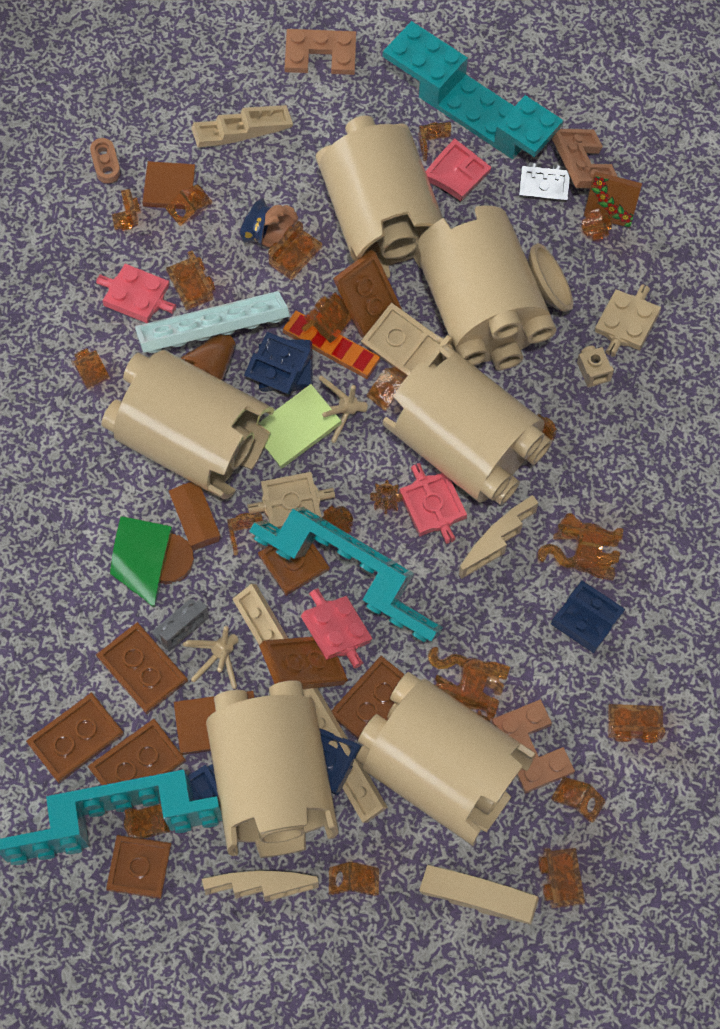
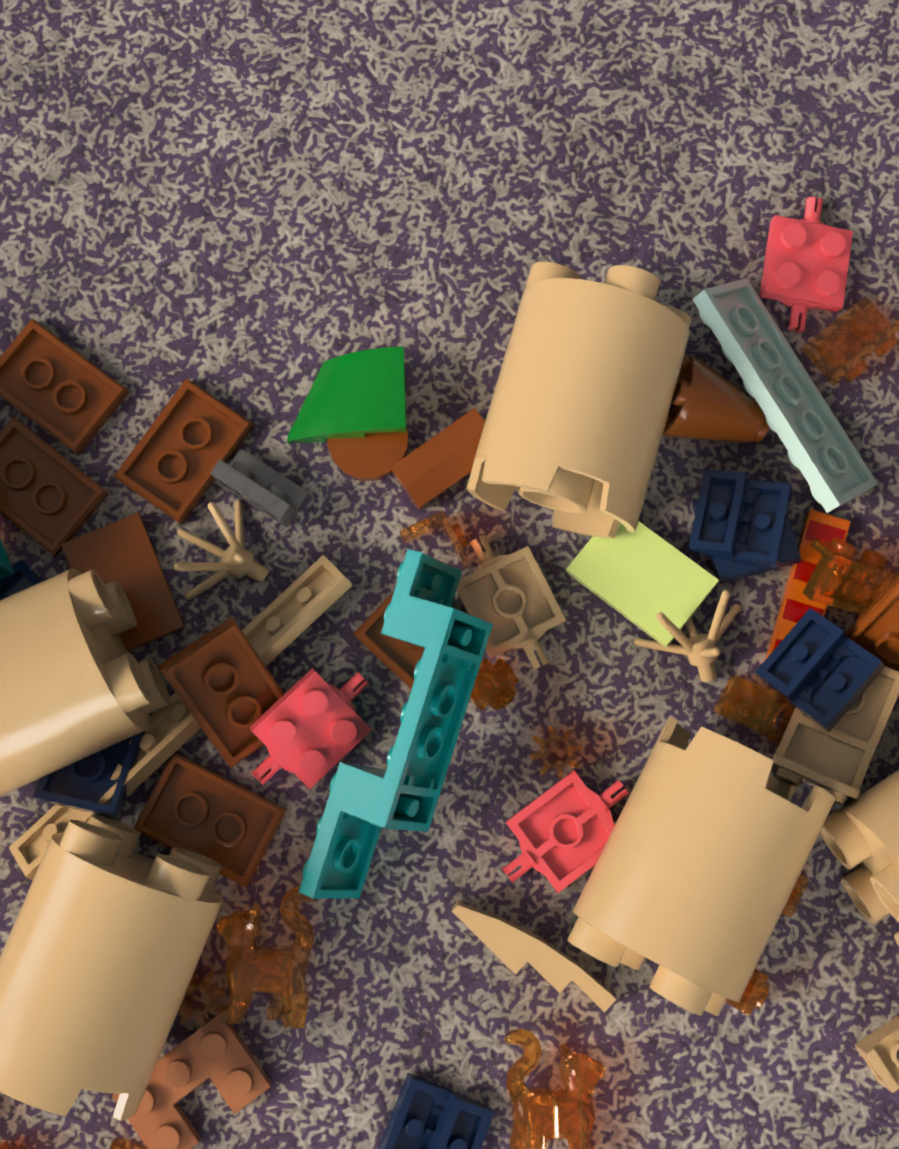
camera: 80 degrees right, 15 degrees up
(89, 367) = (654, 230): clear orange bracket -> none
(376, 345) = (820, 669): none -> dark blue slope

